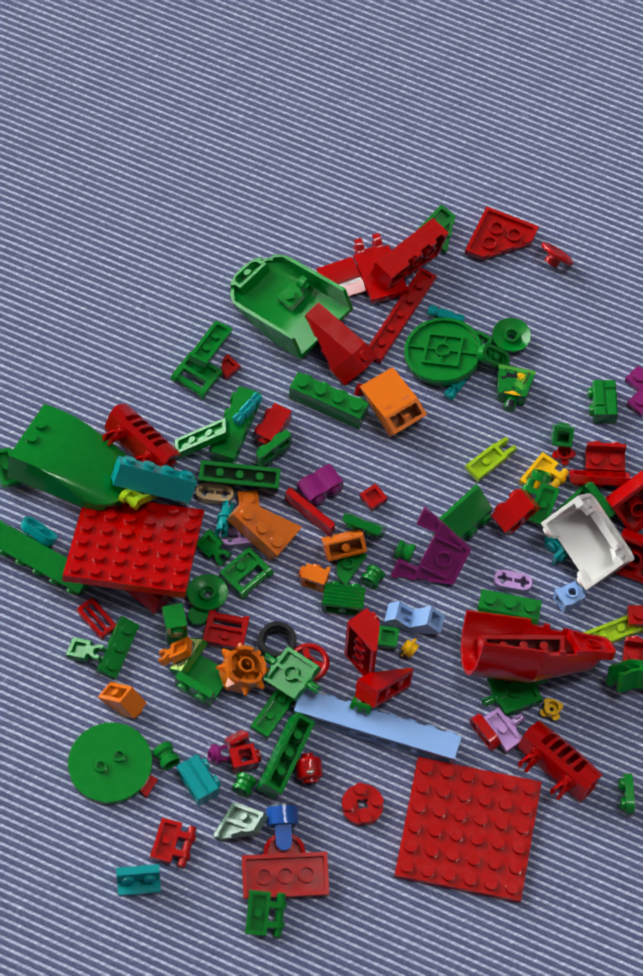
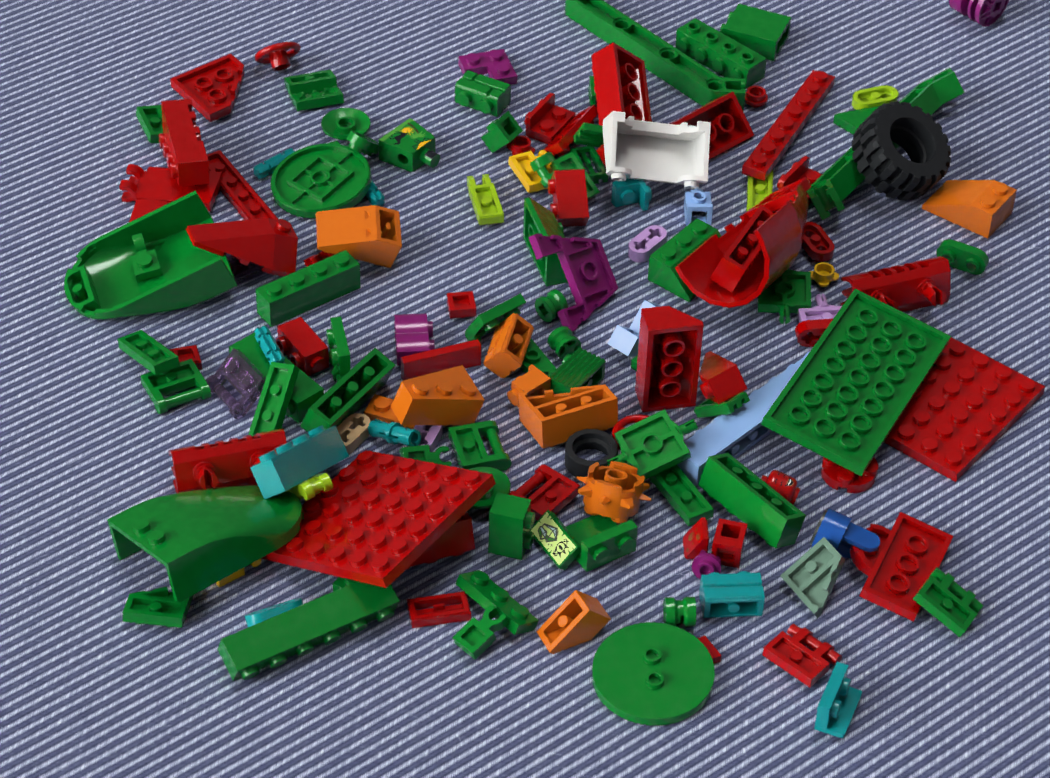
camera: 60 degrees left, 20 degrees down
(178, 651) = (545, 539): orange plate -> none
(214, 407) = (242, 377): none -> clear purple plate
(244, 784) = (763, 556): green wheel -> none
(299, 610) = (556, 417): none -> orange wedge
(434, 774) = (856, 382): none -> green plate
(540, 296) = (313, 90): none -> green slope
(583, 690) = (817, 243): none -> red plate

